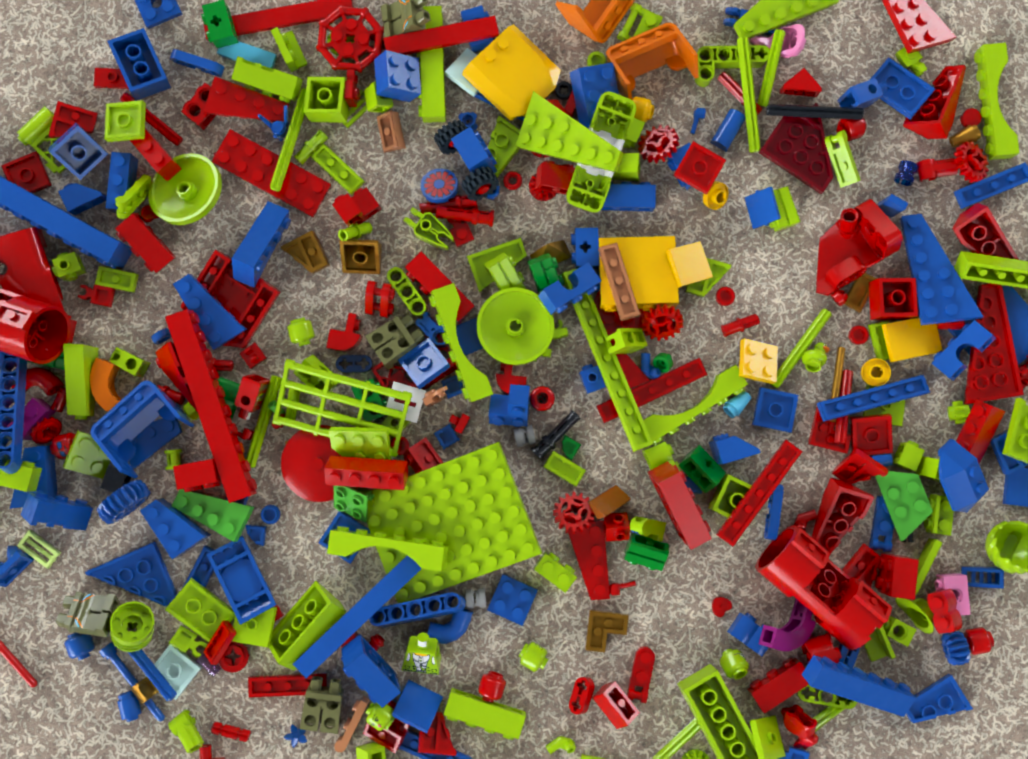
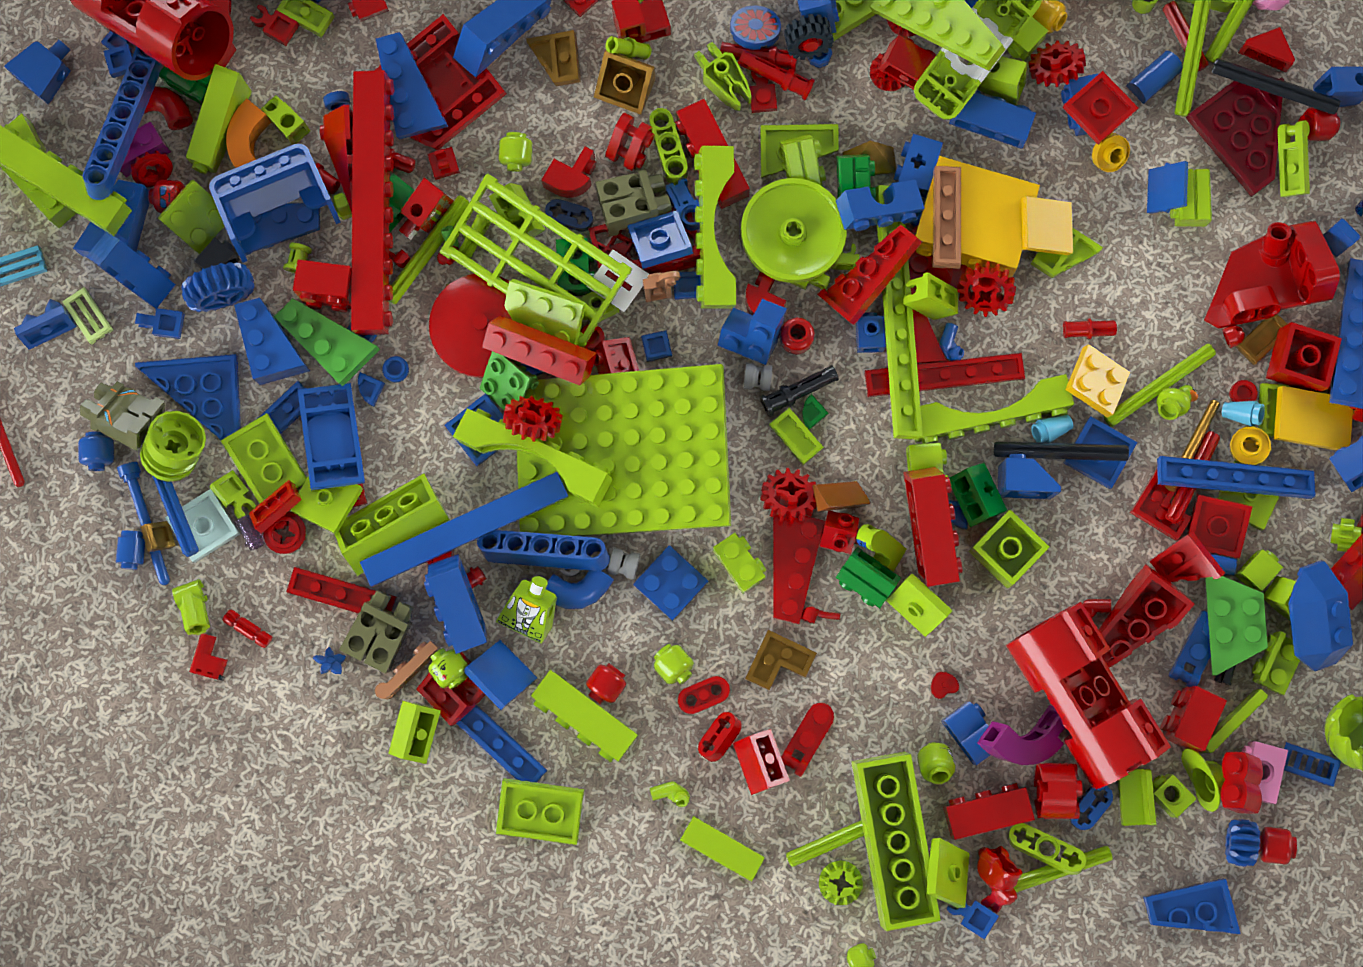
camera: 25 degrees right, 5 degrees down
(60, 400) = (182, 138): red pin -> none
(95, 537) = (164, 323): none -> blue plate
(378, 524) = (532, 418): none -> red gear
(437, 739) = (510, 725): red wing -> none
(460, 422) = (679, 332): red tile -> none
(468, 336) = (728, 229): blue piece -> none
(512, 174) = (852, 44): red plate -> none
(563, 672) = (703, 694): none -> red plate
(577, 346) = (863, 284): none -> red wing
(663, 362) = (972, 342): green tile -> none
(688, 560) = (919, 605): none -> lime plate
(699, 113) = (1123, 44): blue hand -> none
(725, 296) = (1081, 286): red tile -> none
(749, 419) = (1062, 451): none -> black axle
(759, 493) = (1042, 545): red tile -> none
(773, 517) = (1058, 577): blue beam -> none
(858, 685) = (1093, 841): blue brick -> none
(863, 565) = (1155, 690): red wing -> none
(865, 349) = (1244, 412): none -> medium azure cone

